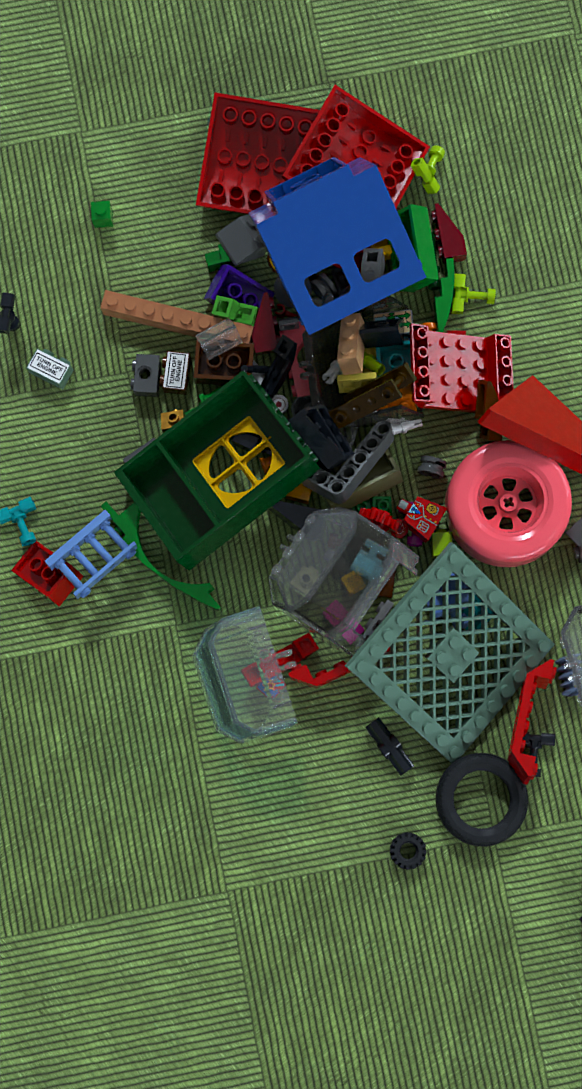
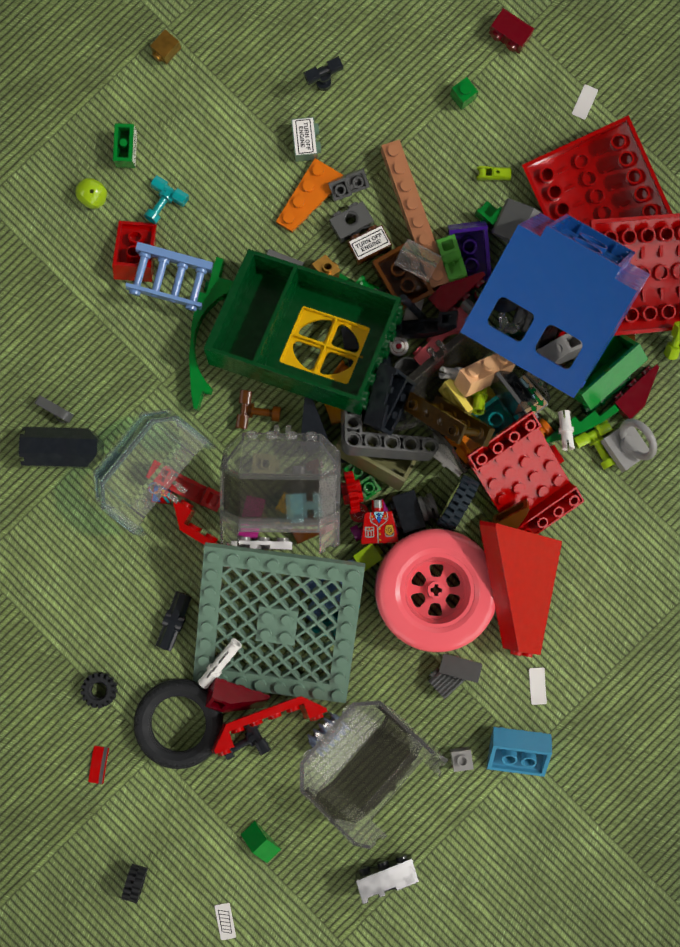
camera: 50 degrees right, 5 degrees up
(76, 143) = (511, 31): none -> dark red brick
(98, 392) = (308, 195): none -> orange wing
(113, 357) = (348, 184): none -> dark grey slope
(137, 731) = (55, 409): none -> dark grey piece
(175, 123) = (585, 101): none -> white sticker
(175, 746) = (60, 447): none -> black brick
(186, 231) = (497, 173): none -> lime bar
(248, 564) = (248, 409): none -> reddish brown bar
(425, 486) = (407, 511): none -> black brick
(442, 311) = (566, 430): none -> white pin
(446, 437) = (458, 503): none -> black wheel
(459, 748) = (215, 669): none -> white pin
(472, 894) = (98, 764): none -> red sticker
(488, 271) = (627, 446): none -> light grey tile
(488, 737) = (232, 697): none -> dark red slope

